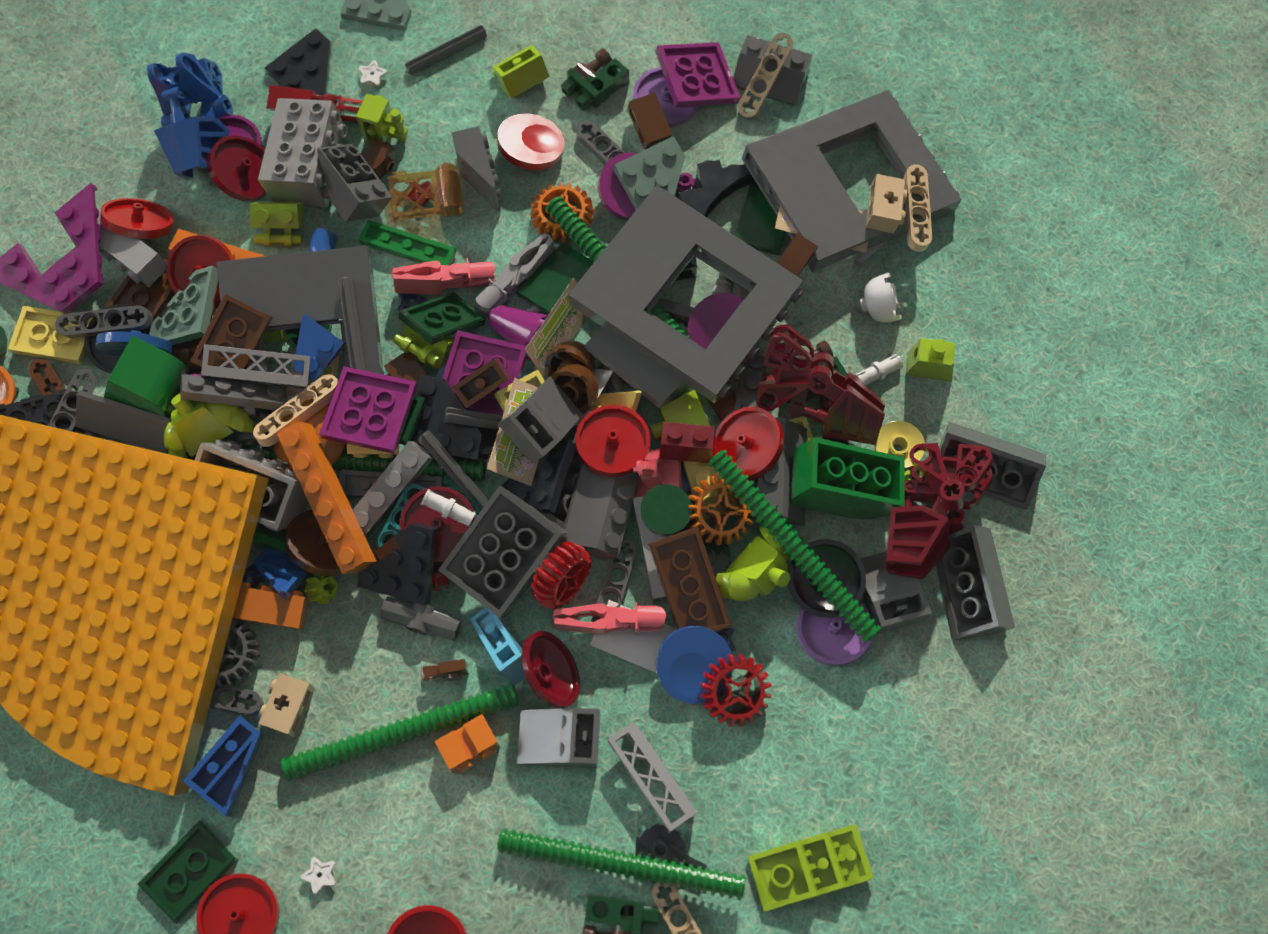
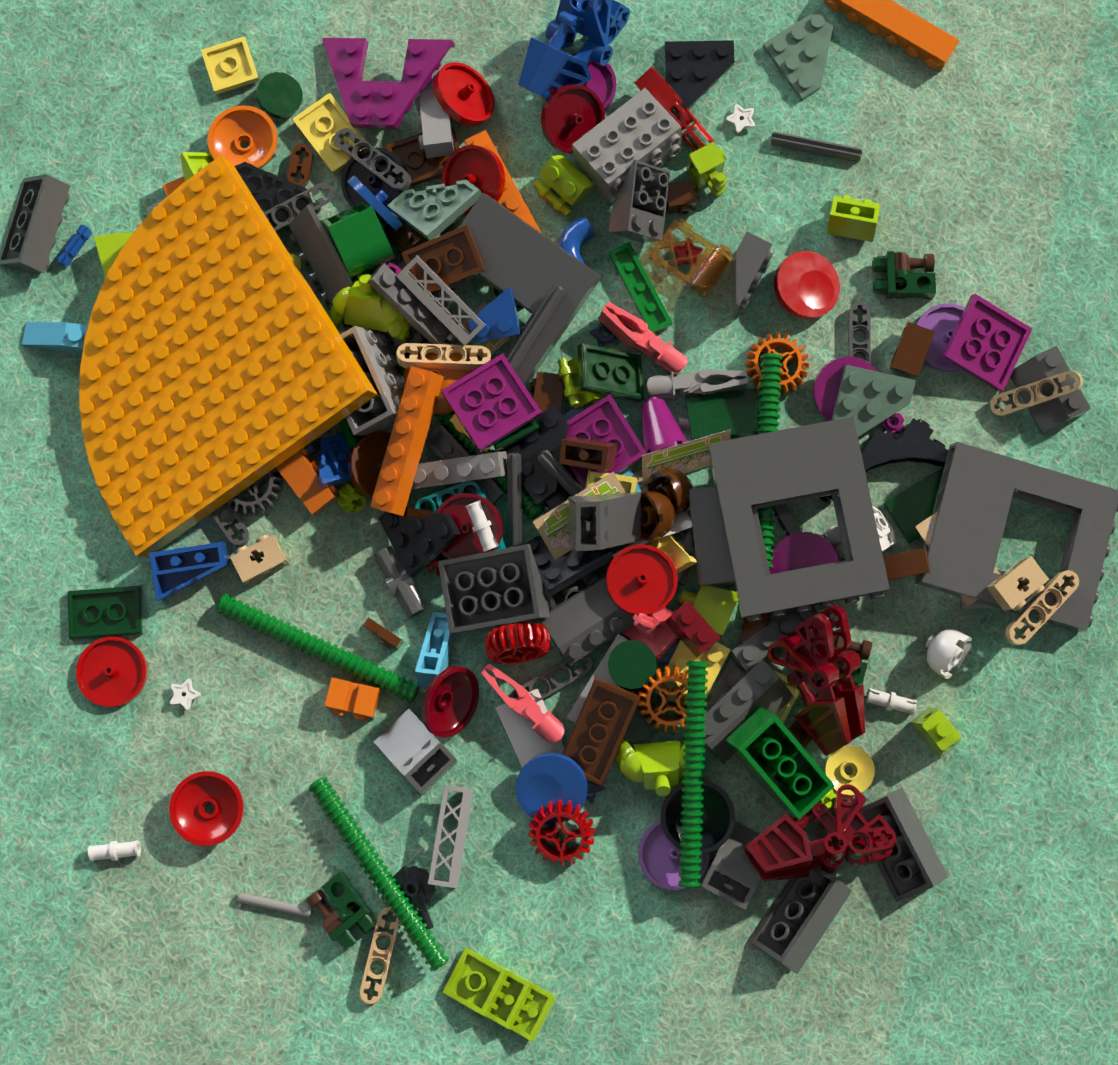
camera: 45 degrees right, 10 degrees up
(751, 439) = (736, 670): red piece -> none

